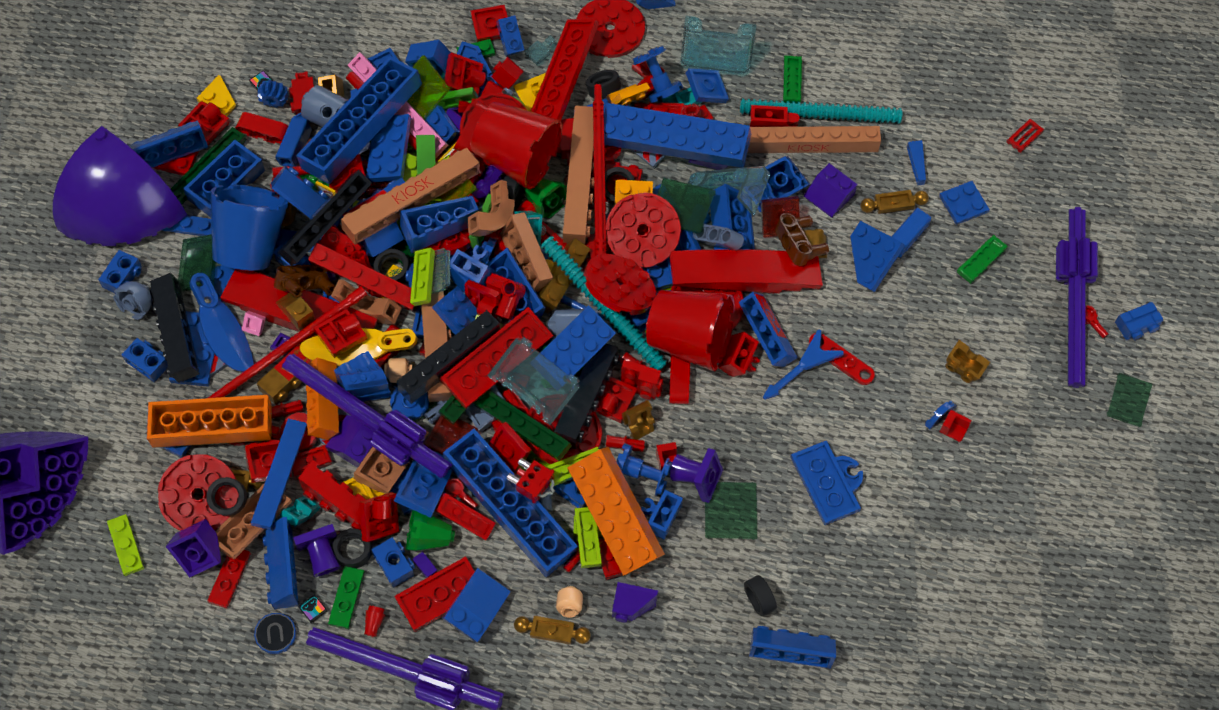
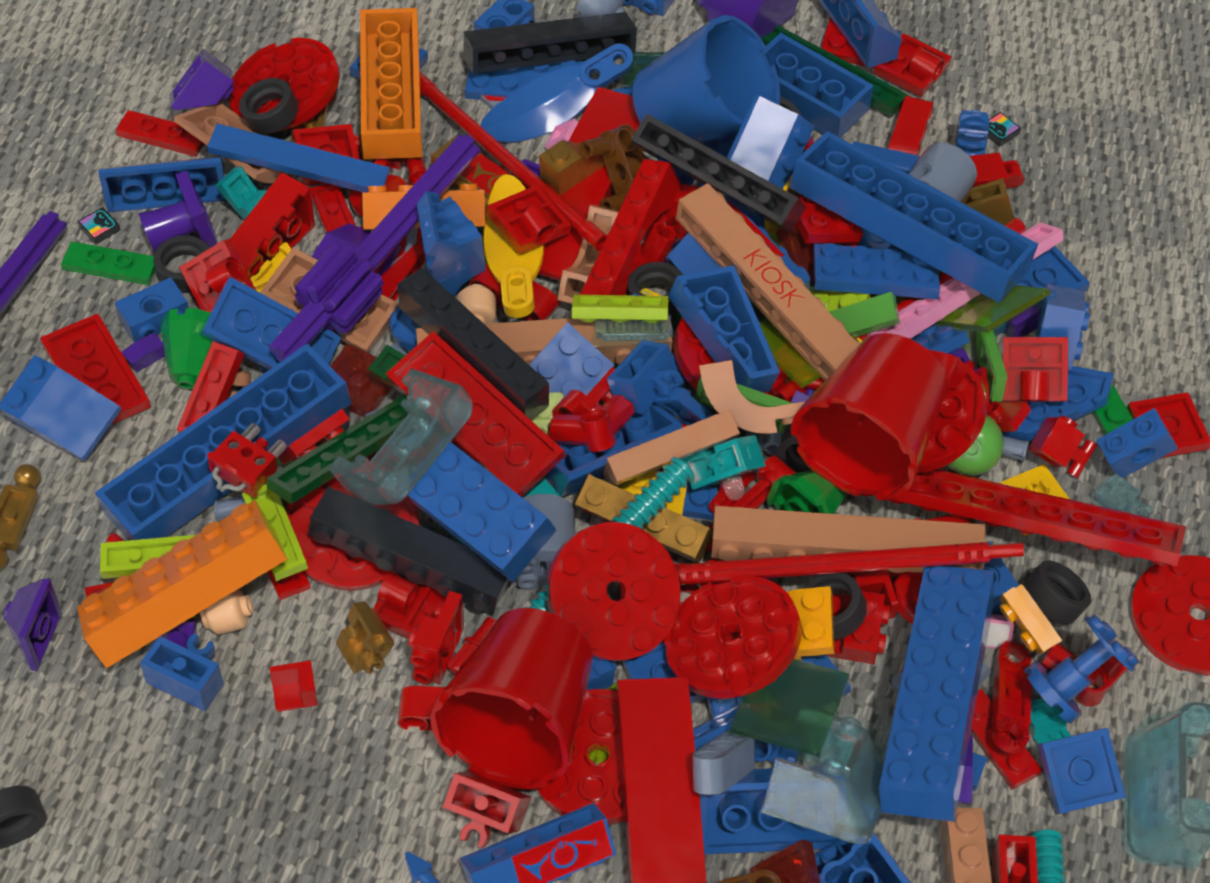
camera: 90 degrees right, 10 degrees down
(125, 545) = (225, 25): lime plate -> none
(219, 95) = (963, 79): yellow wing -> none
(275, 633) = (68, 186): black tile -> none
(373, 620) = (67, 293): red cone -> none
(569, 601) = (51, 538): light nougat head -> none
(618, 442) = (329, 624): red axle -> none
(635, 467) = (276, 616): blue piece -> none
(703, 475) = (248, 731): dark purple plant -> none
(732, 511) = (189, 791): clear green piece -> none

